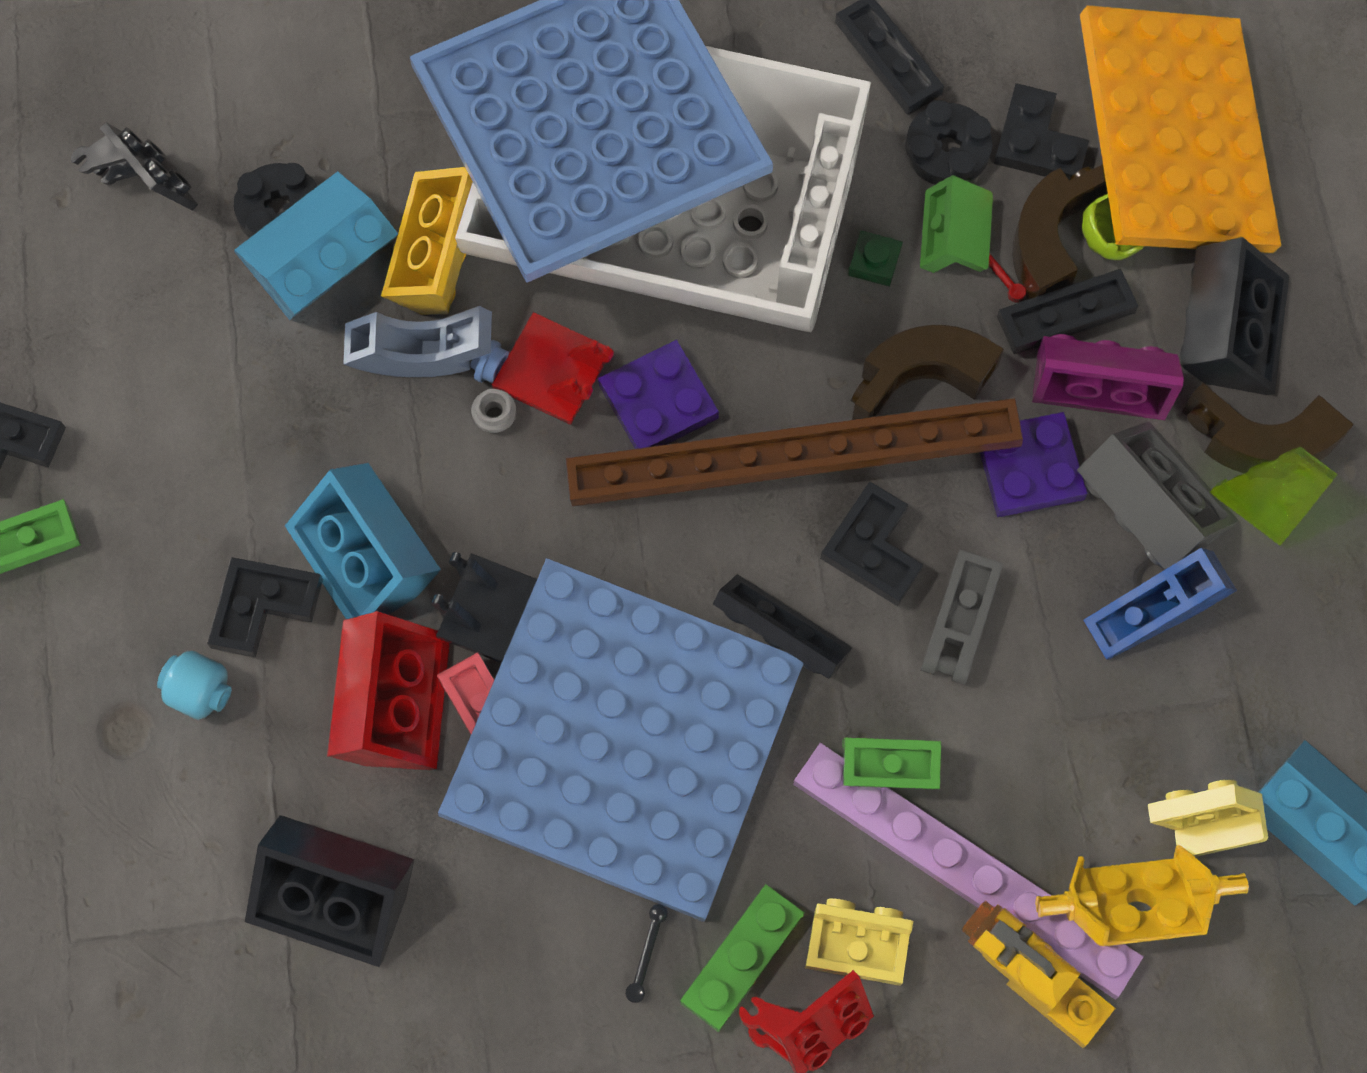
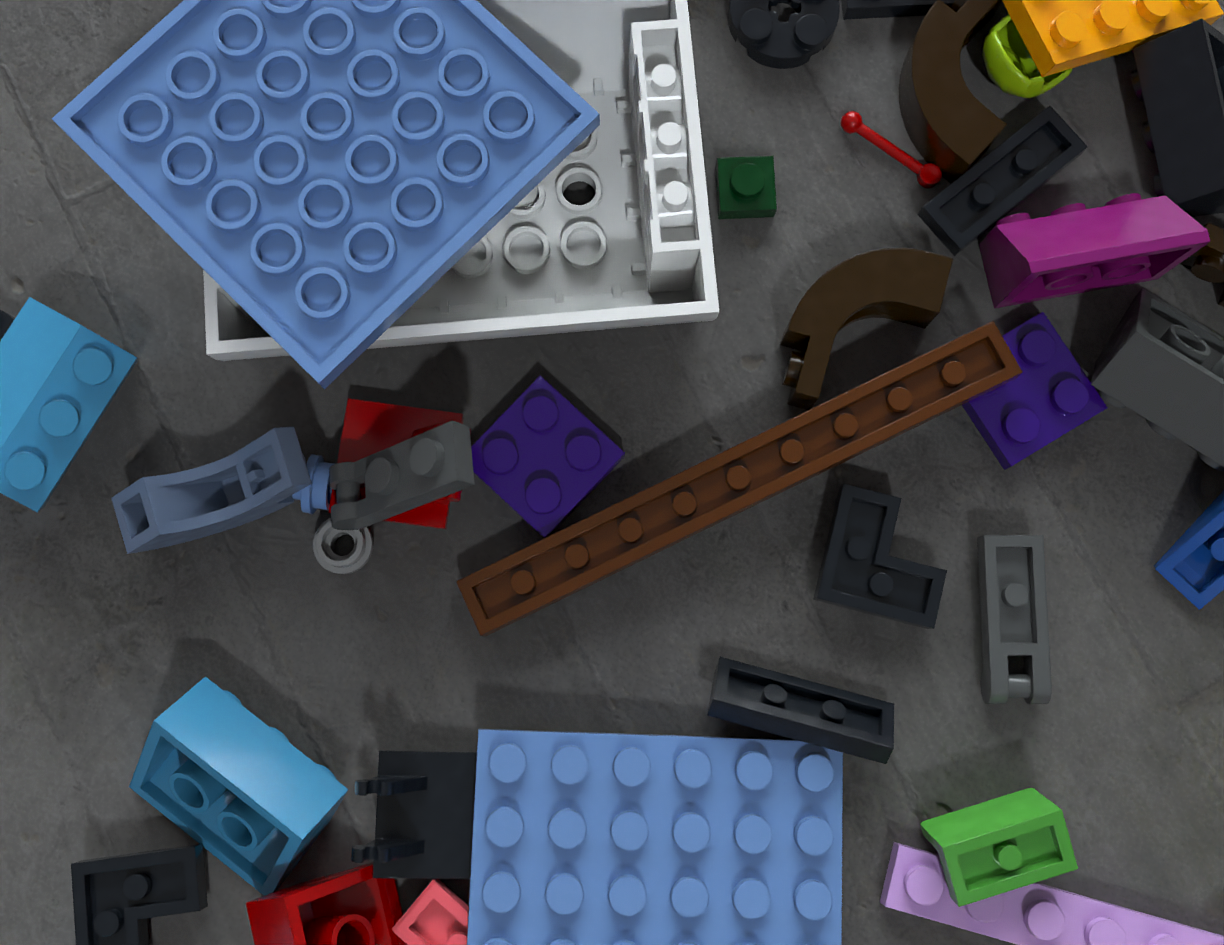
camera: 20 degrees left, 10 degrees up
(426, 251) = (181, 388): yellow slope -> none
(553, 368) = (402, 476): none -> dark grey plate
(956, 225) = (830, 114): bright green panel -> none

